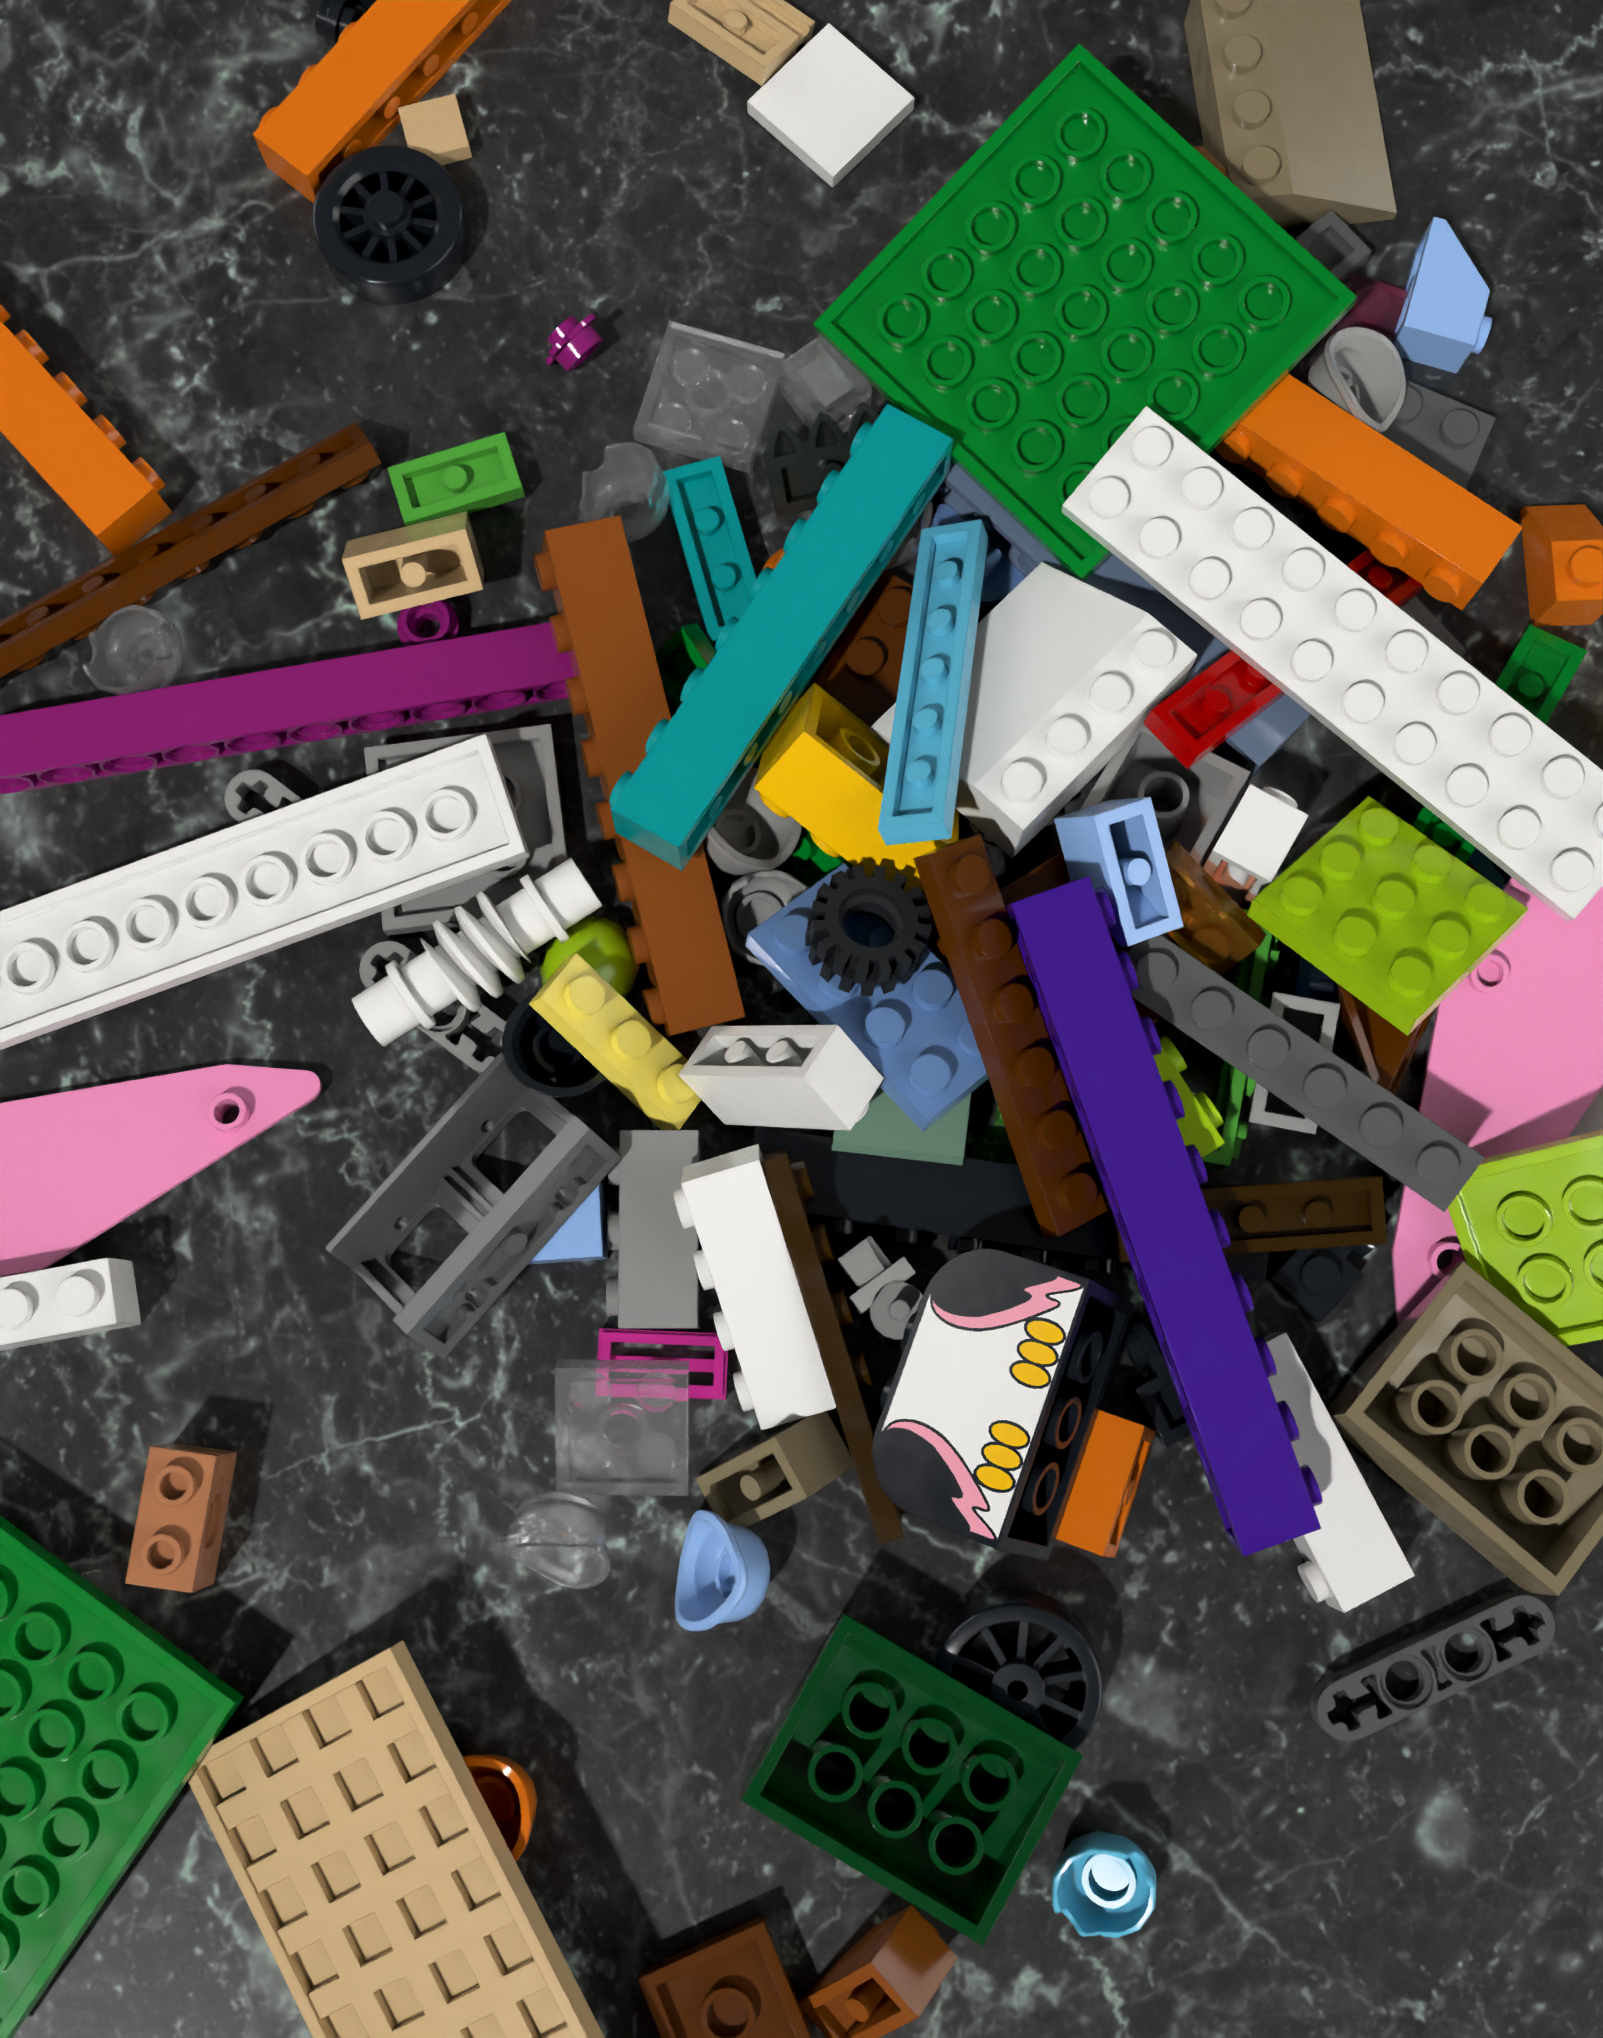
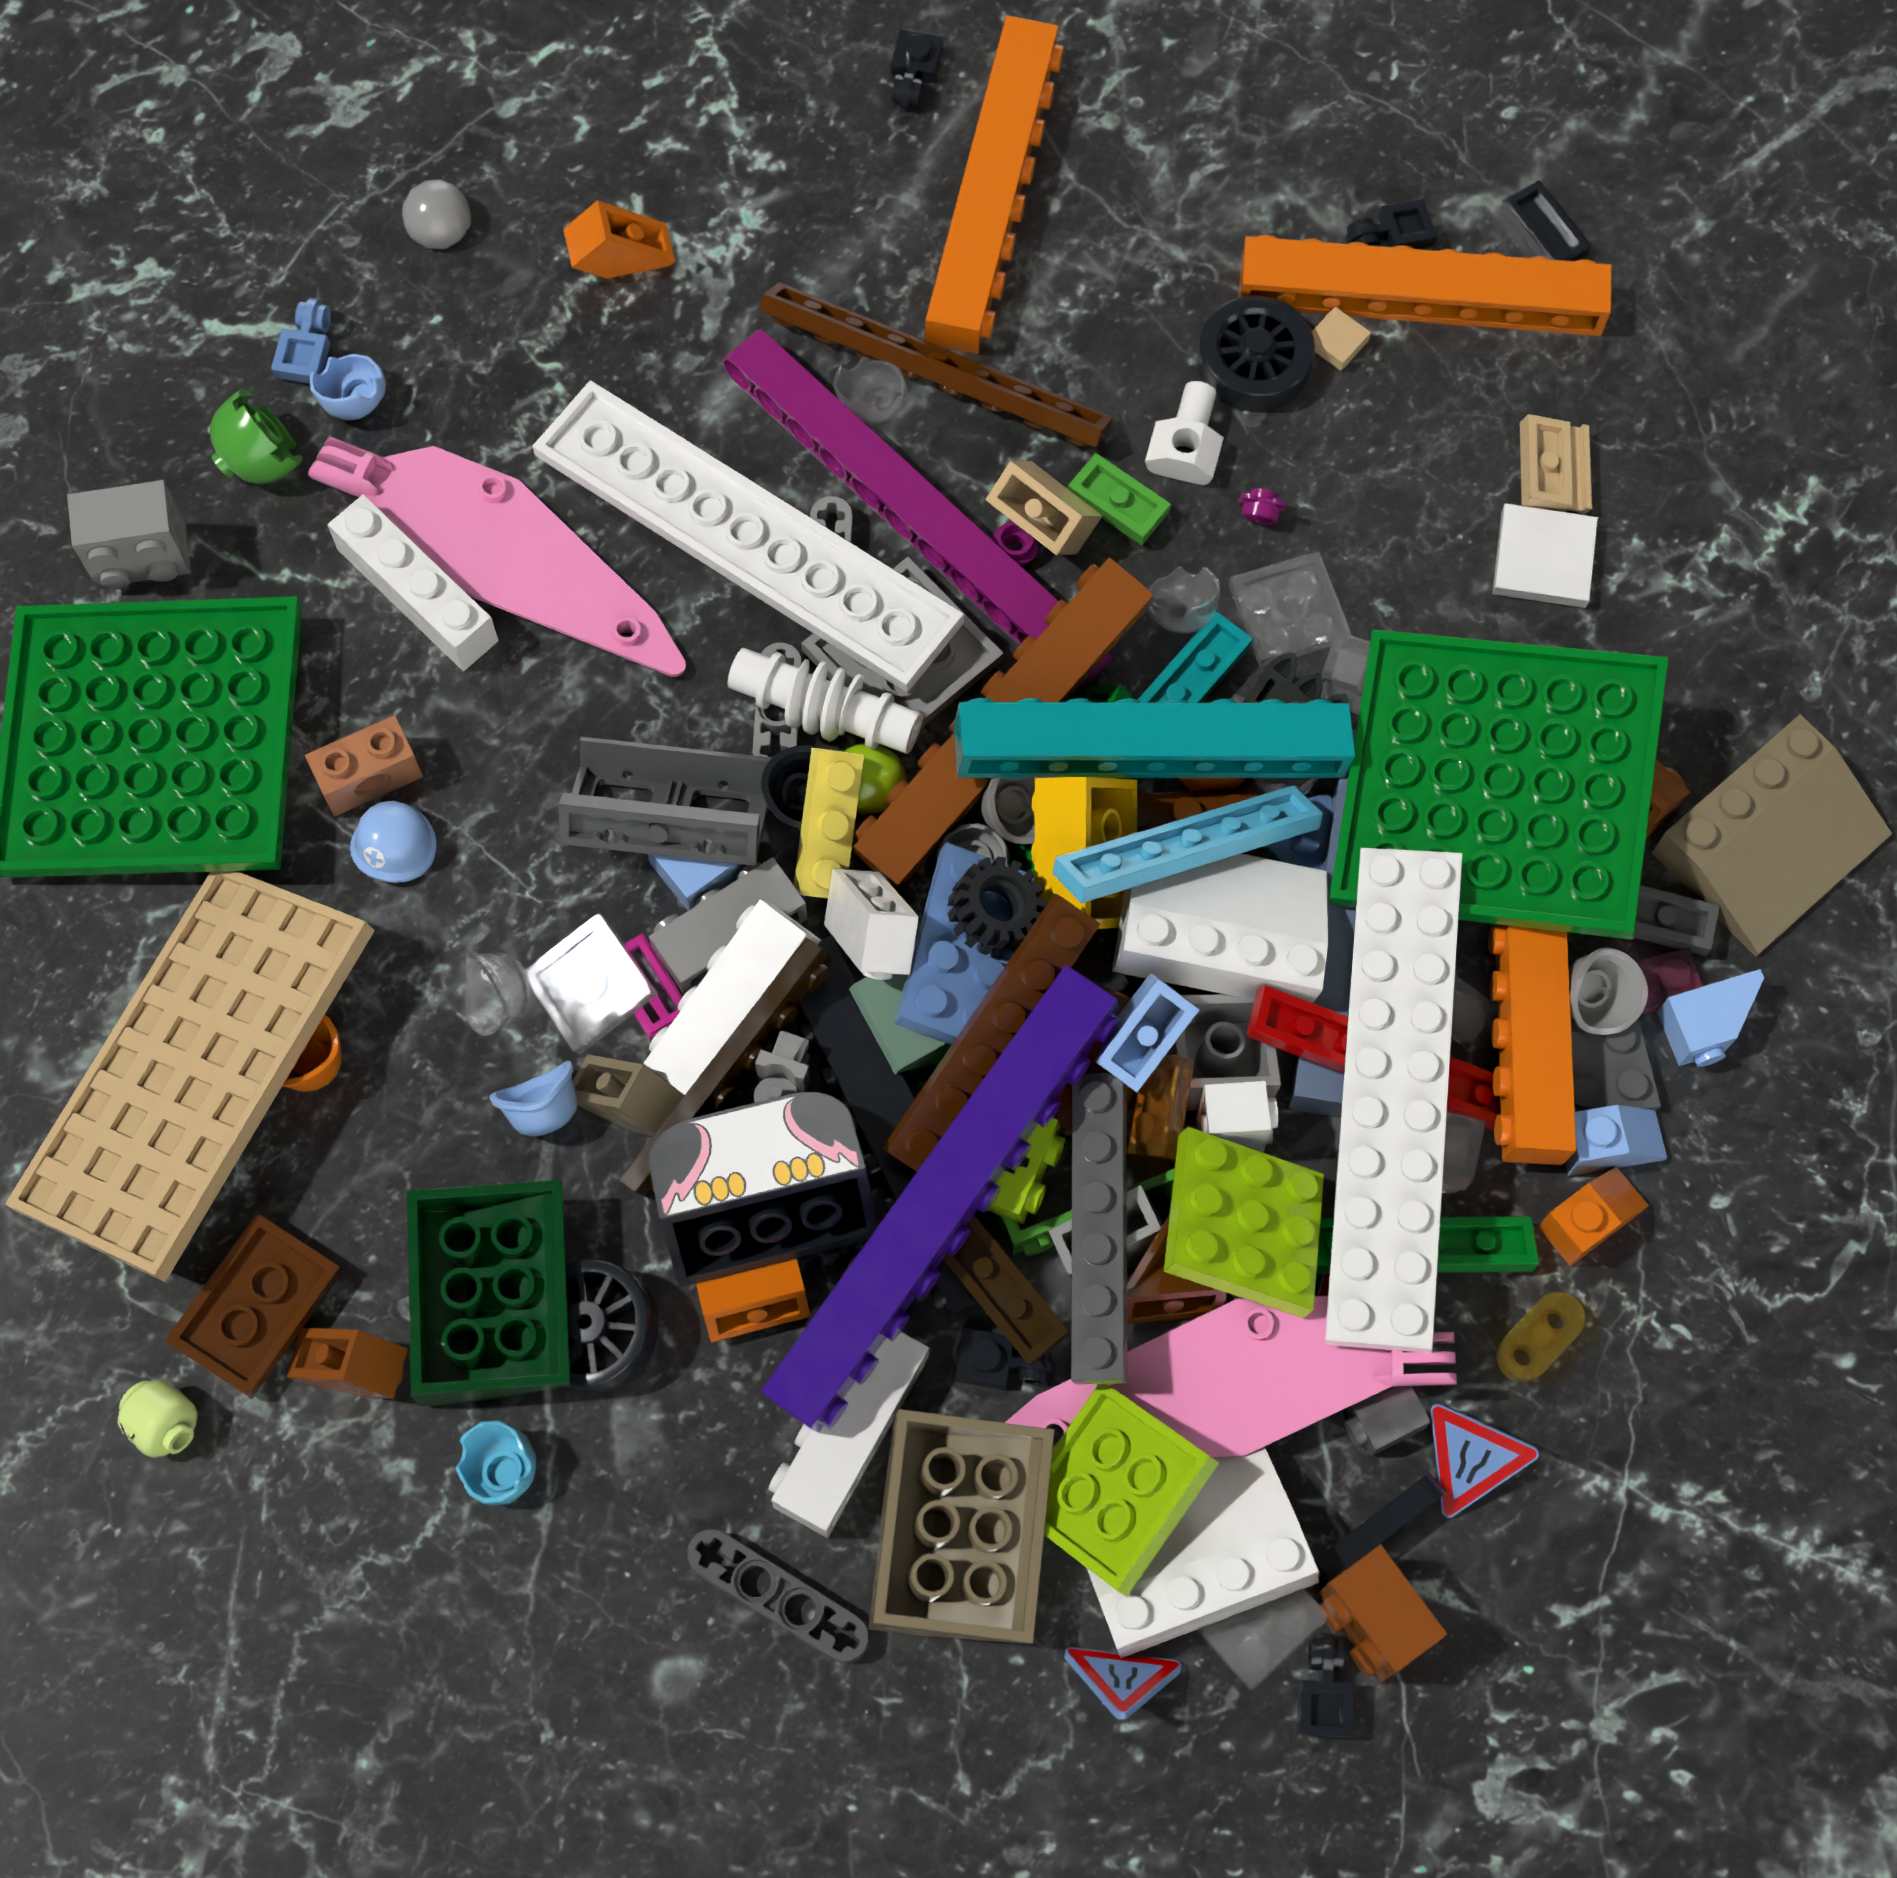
camera: 55 degrees right, 10 degrees down
(297, 1539) = (393, 843): none -> light blue helmet
(434, 353) = (1188, 430): none -> white piece
(1509, 477) = (1615, 1138): none -> light blue slope

